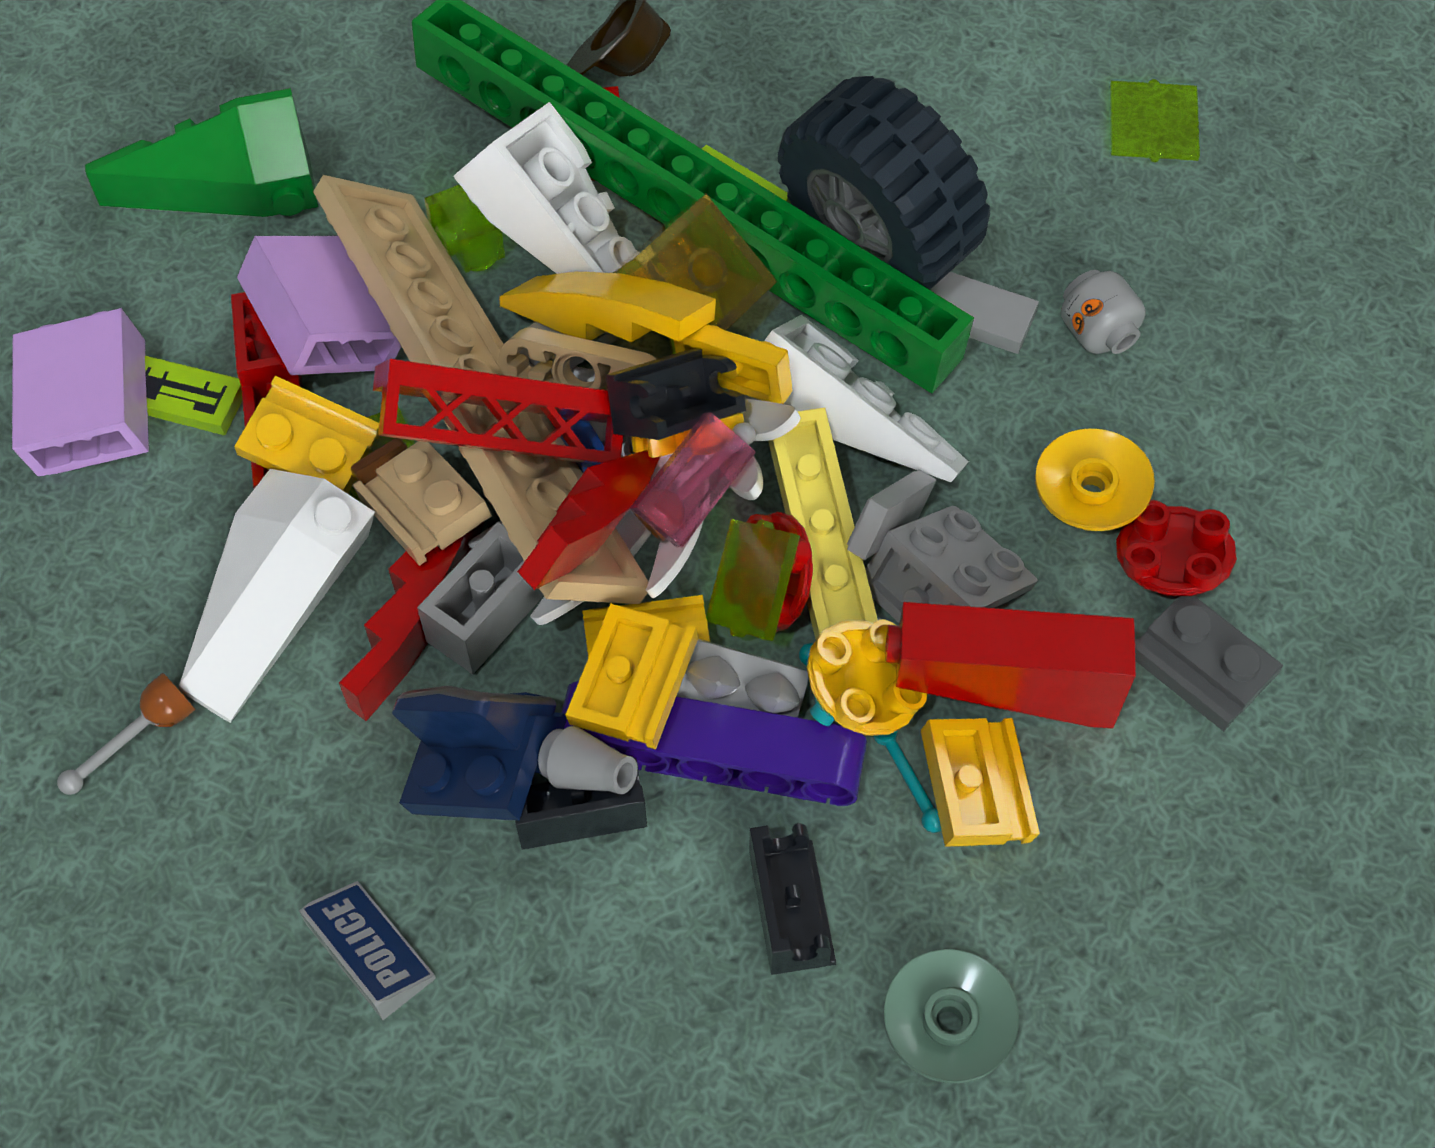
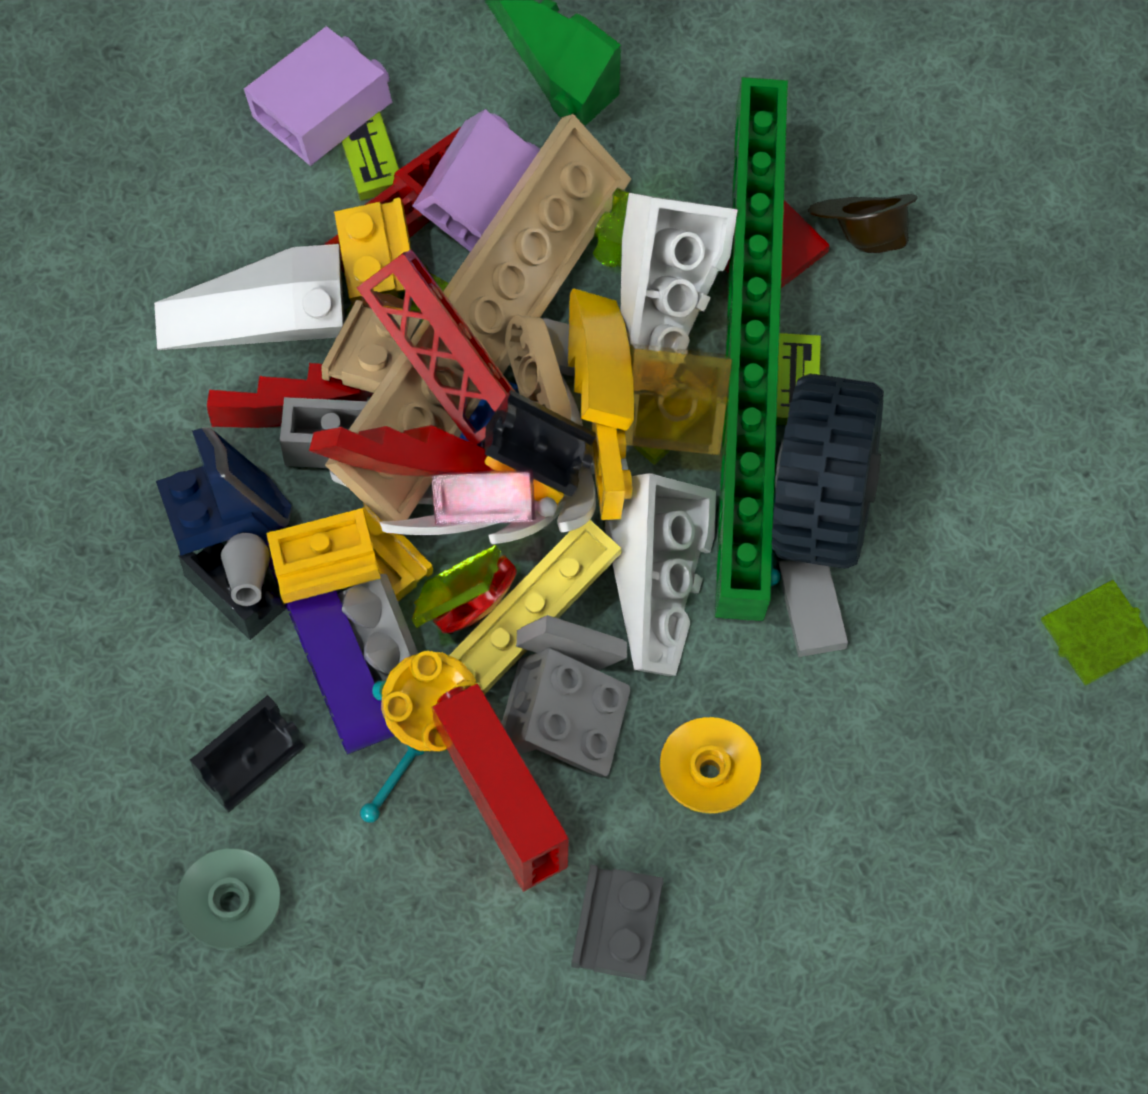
camera: 55 degrees right, 5 degrees up
(159, 705) = (136, 301): hinge -> none
(367, 947) = (56, 528): slope -> none
(979, 782) = (413, 823): yellow plate -> none
(1102, 312) = (864, 690): light grey head -> none
(1177, 549) = (693, 854): red dish -> none

